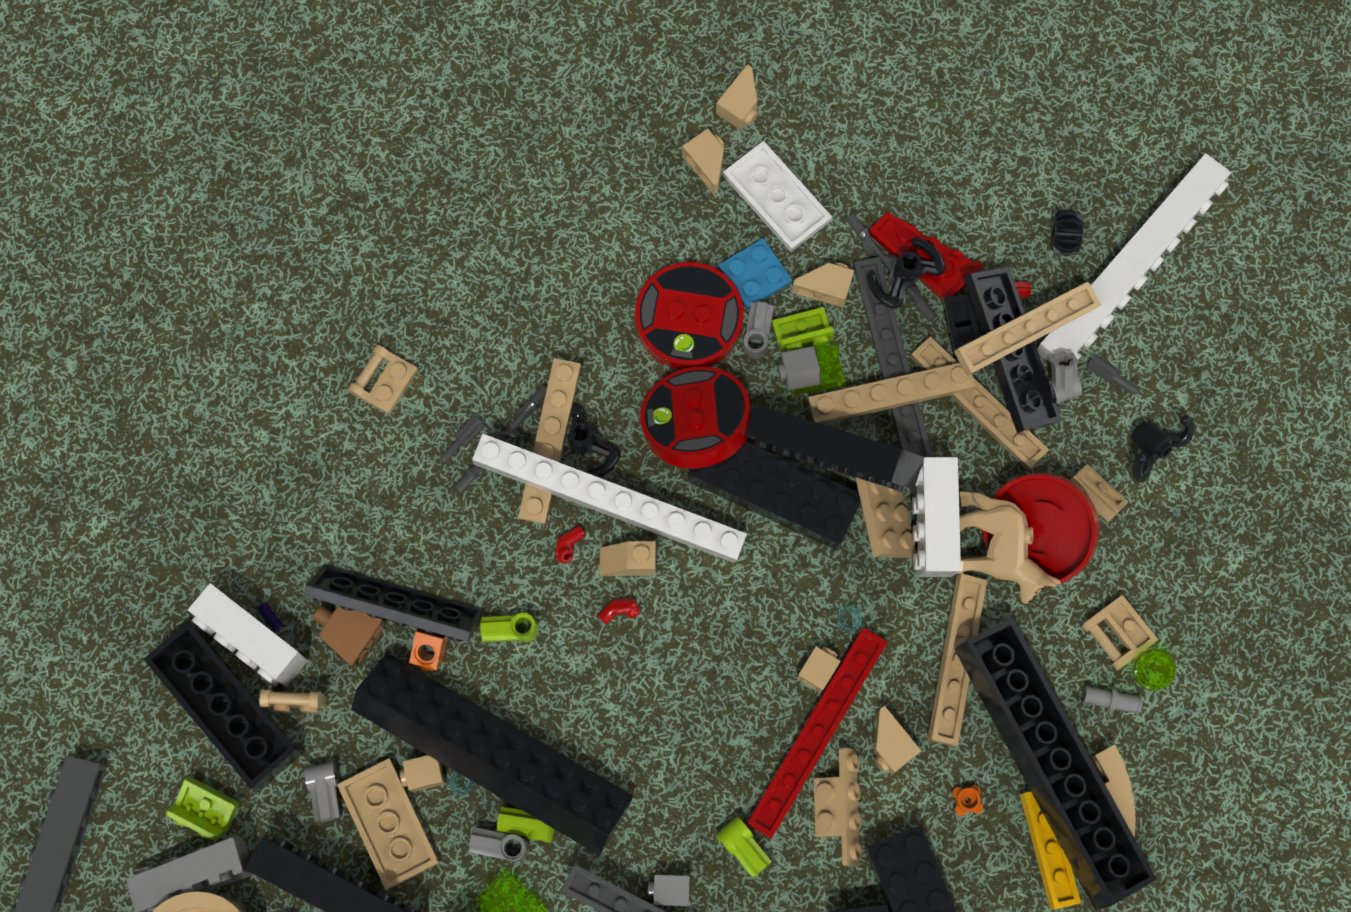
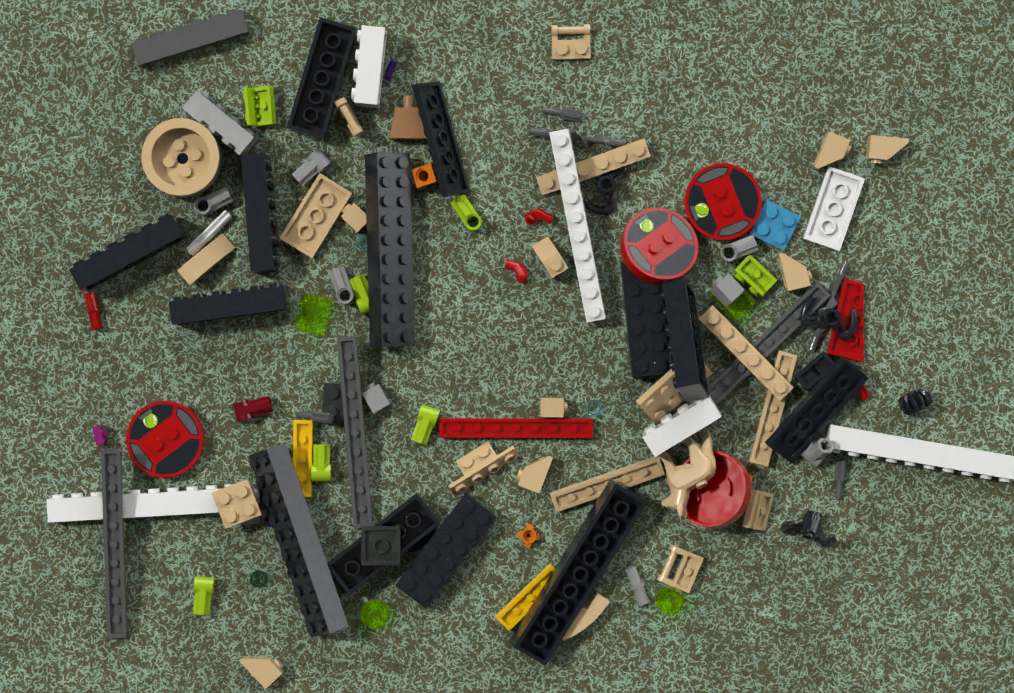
camera: 60 degrees right, 15 degrees up
(1027, 328) = (831, 412): tan plate -> none

